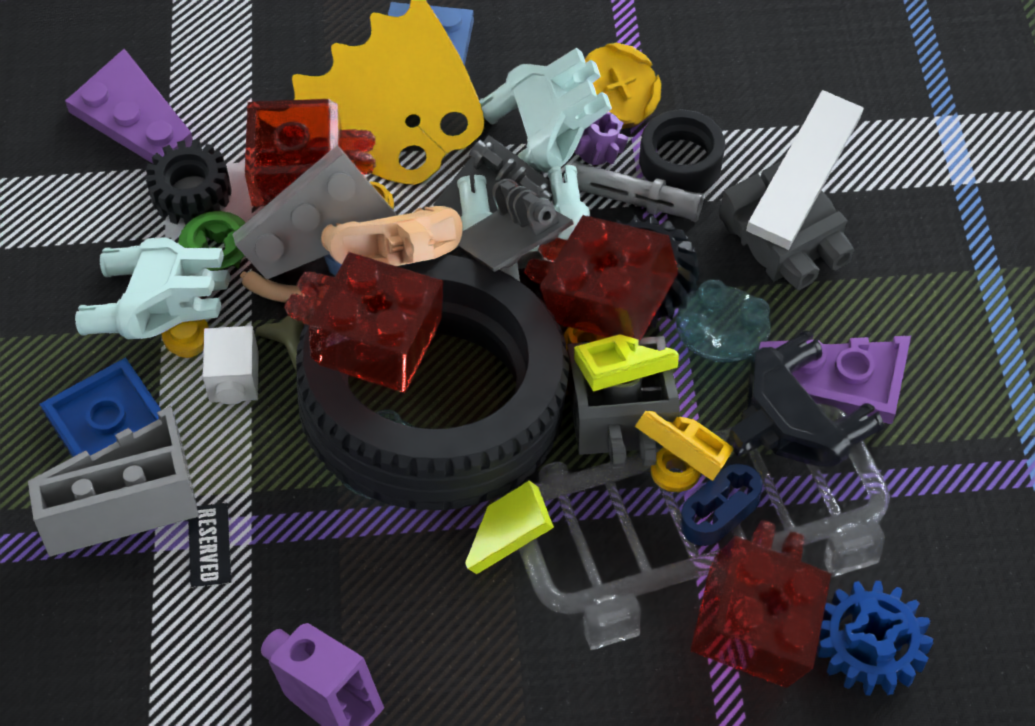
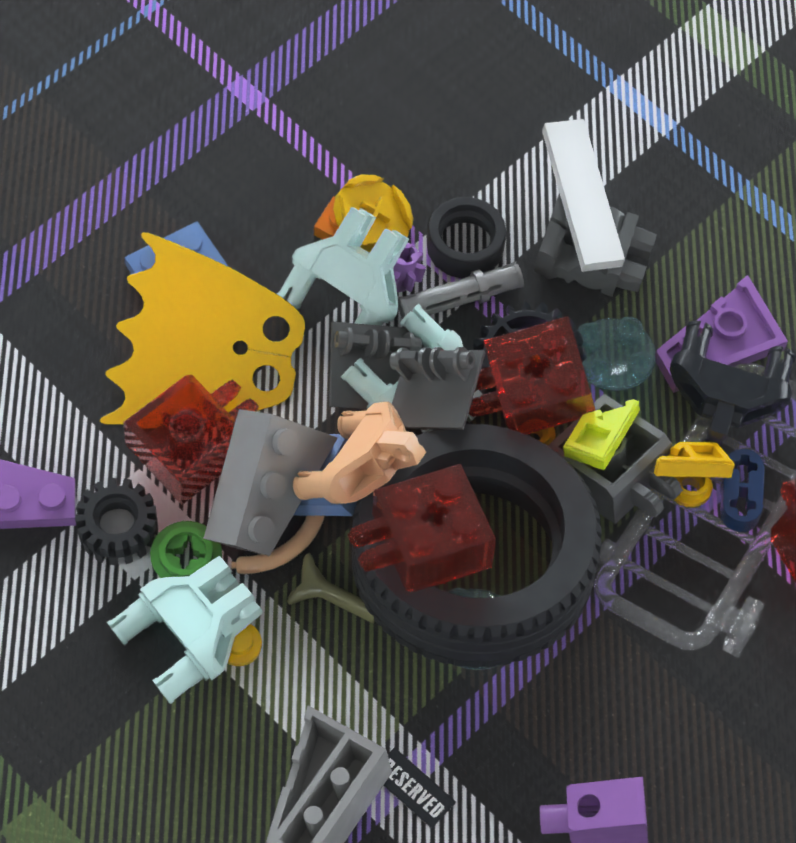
camera: 45 degrees left, 5 degrees up
(100, 408) = (243, 754): blue tile -> none
(230, 364) = (303, 642): white brick -> none
(509, 526) = (618, 611): neon yellow tile -> none

